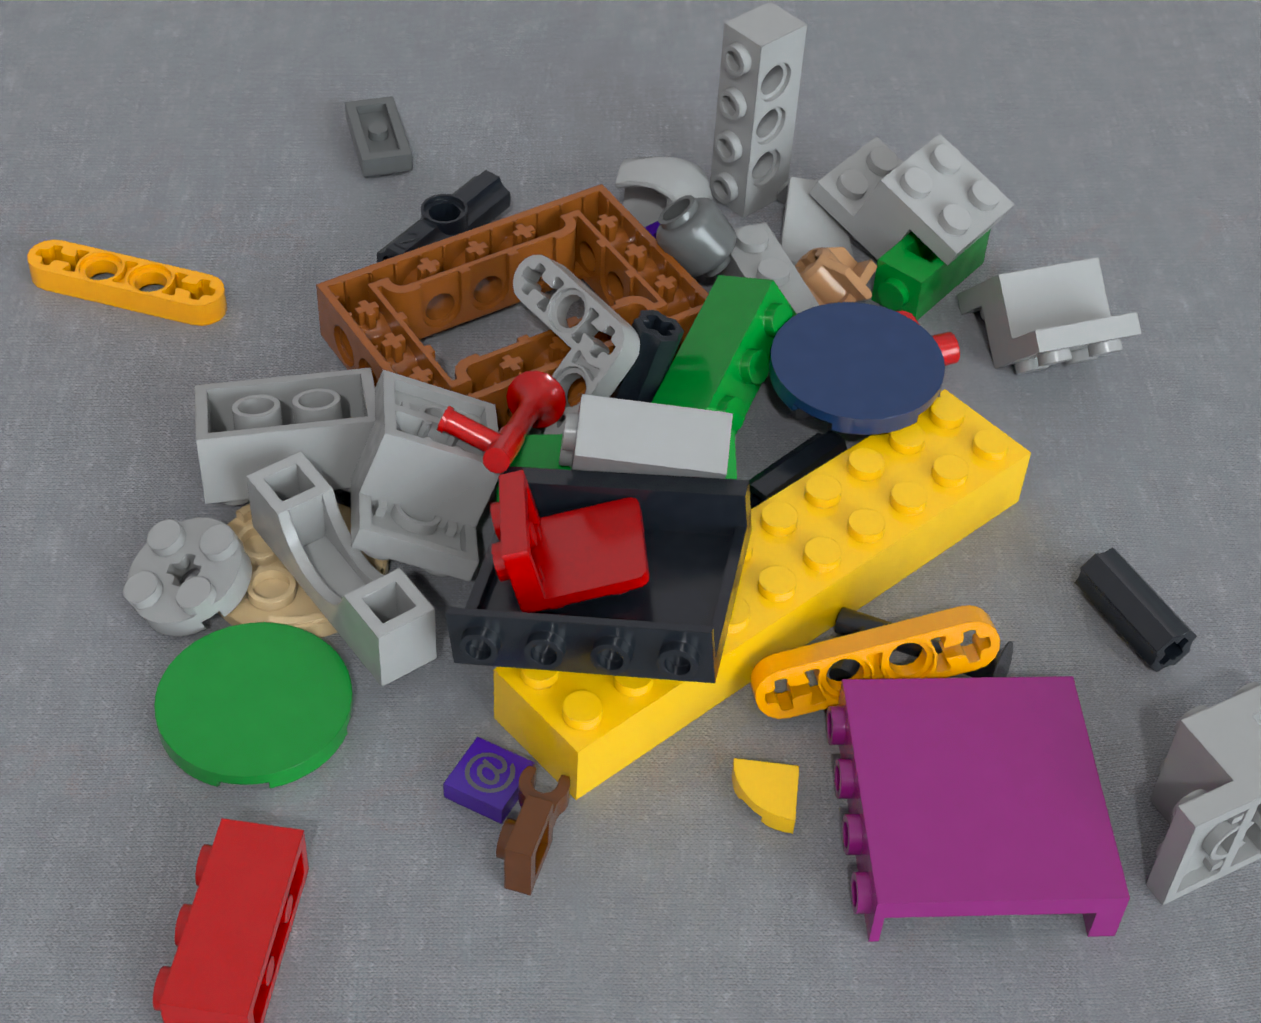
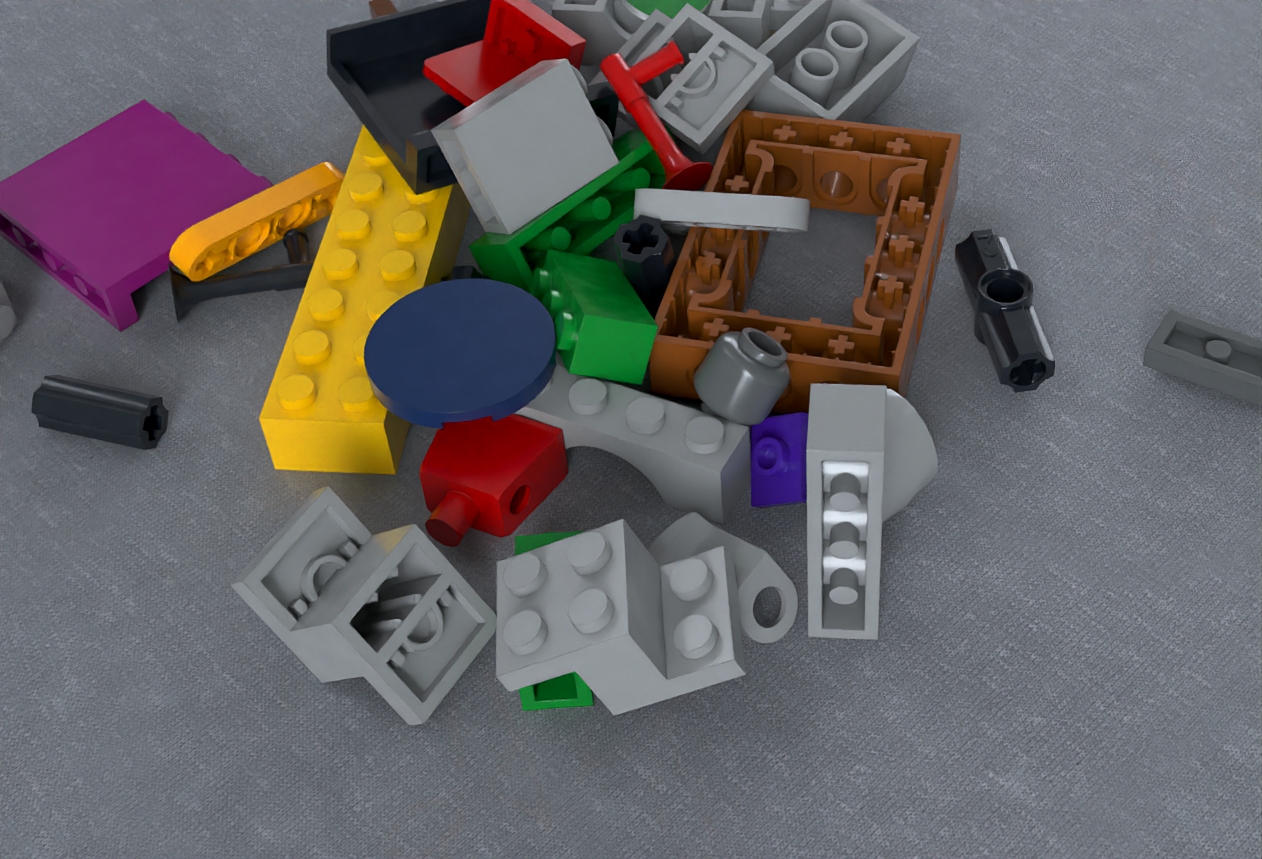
camera: 145 degrees right, 0 degrees up
(186, 293) = (1093, 144): light orange beam -> none
(768, 791) = (283, 152): yellow tile -> none
(835, 275) = (611, 493): medium nougat piece -> none

